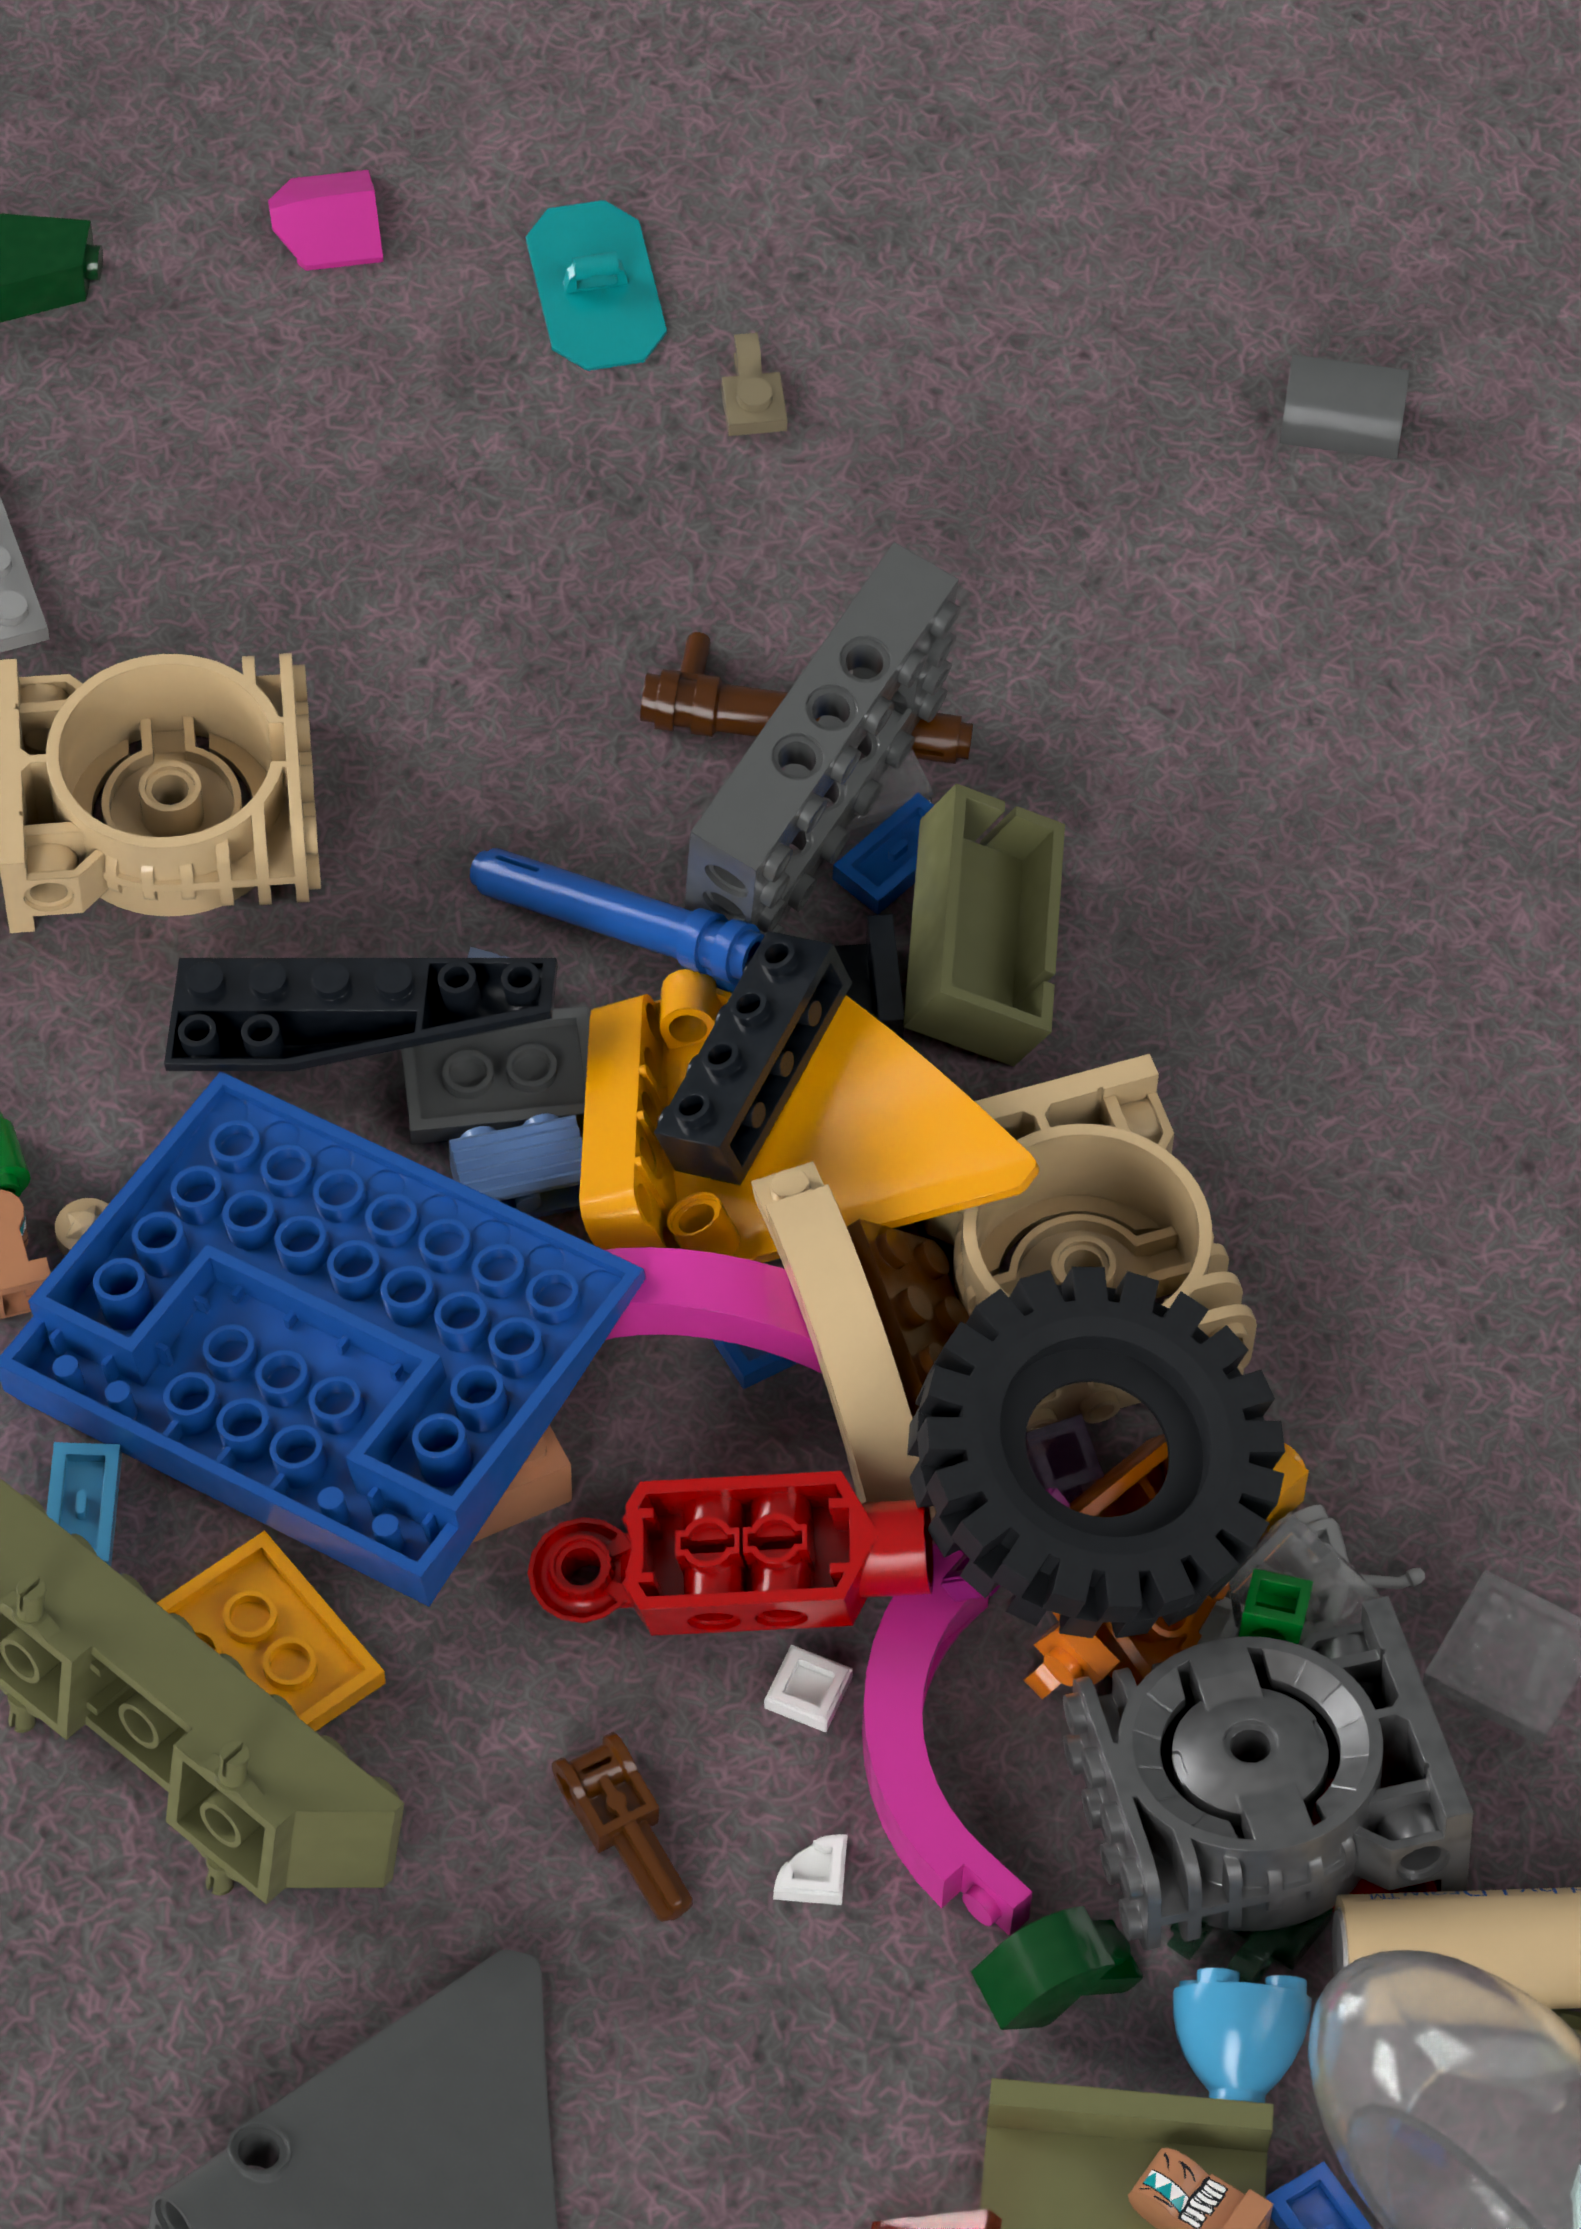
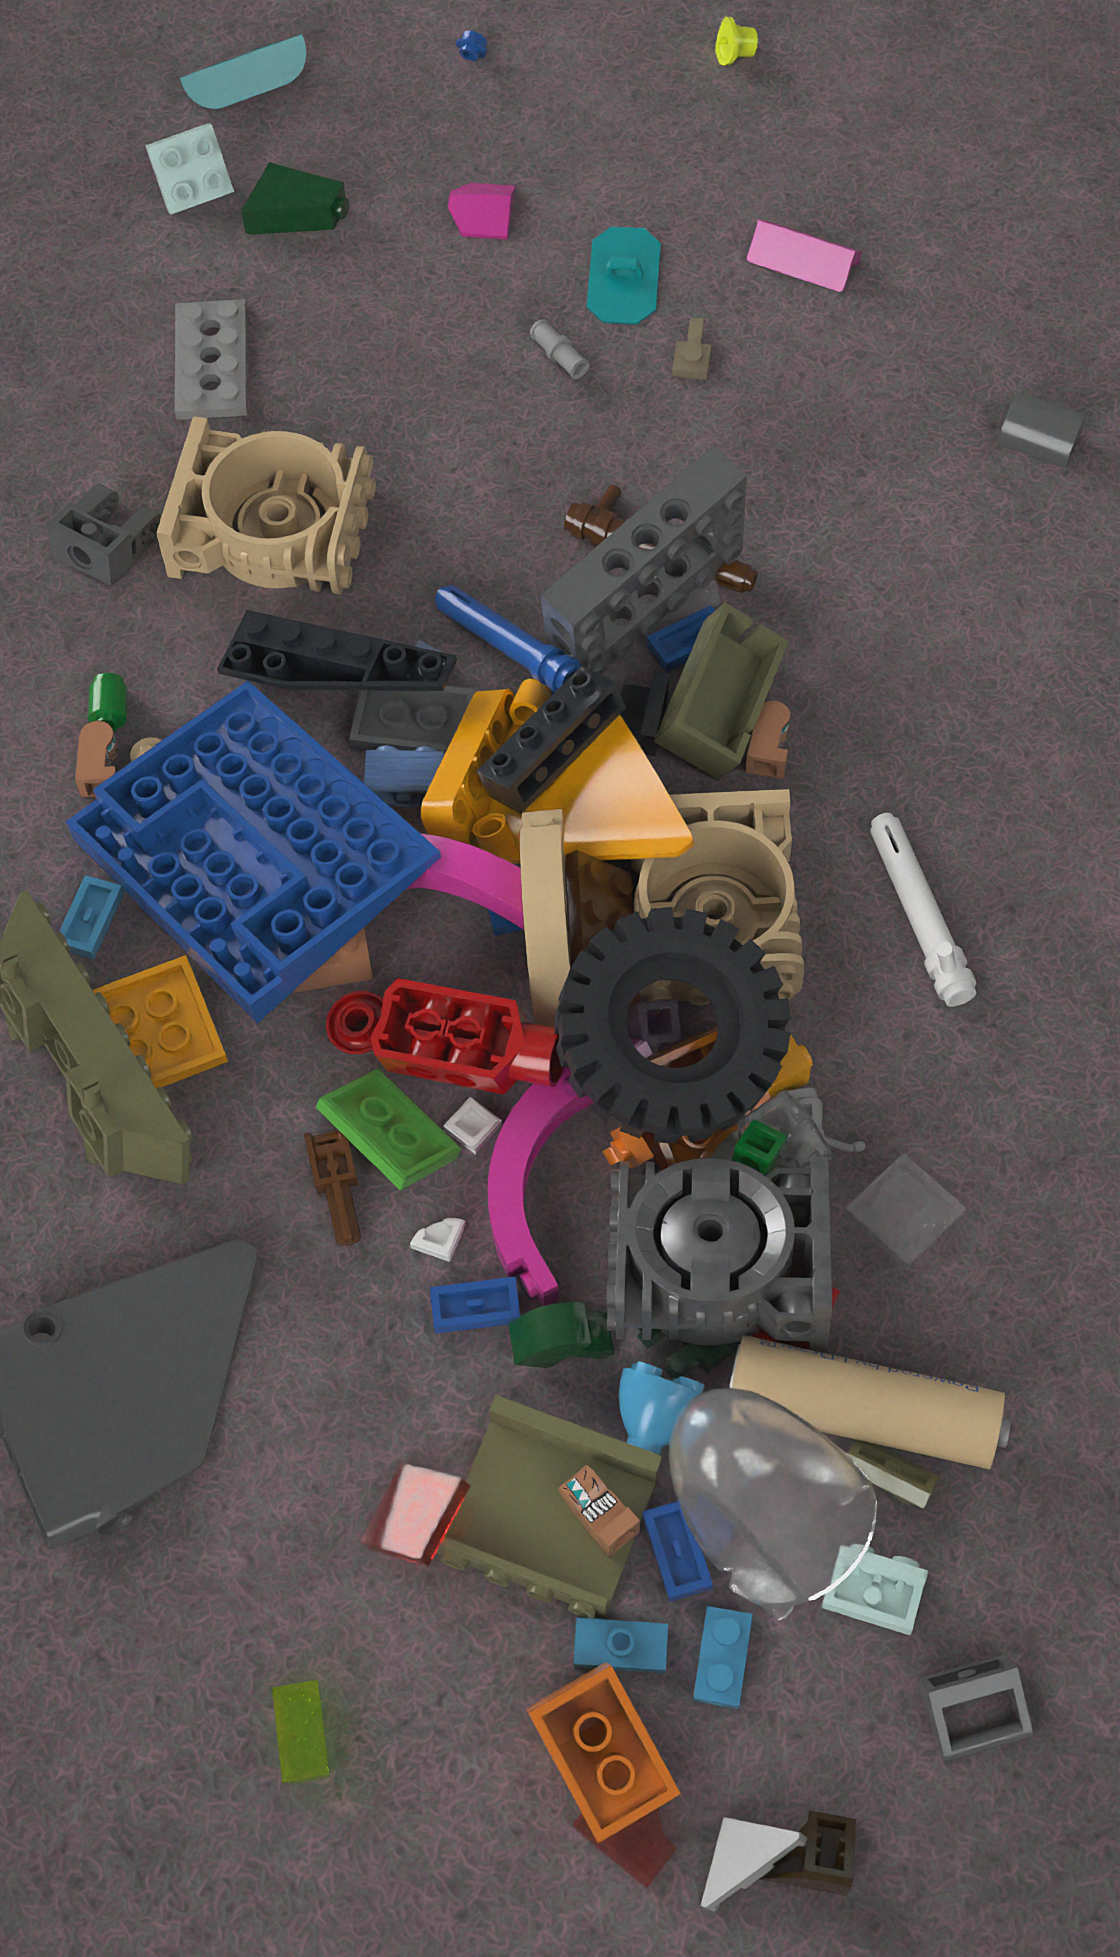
camera: 20 degrees right, 5 degrees up
(534, 428) = (559, 349): none -> light grey pin
(684, 1722) = (388, 1128): none -> bright green tile
(877, 198) = (802, 255): none -> panel
(906, 1957) = (474, 1304): none -> blue plate
(1078, 1009) = (764, 750): none -> nougat leg
(1451, 1260) = (944, 959): none -> white cylinder

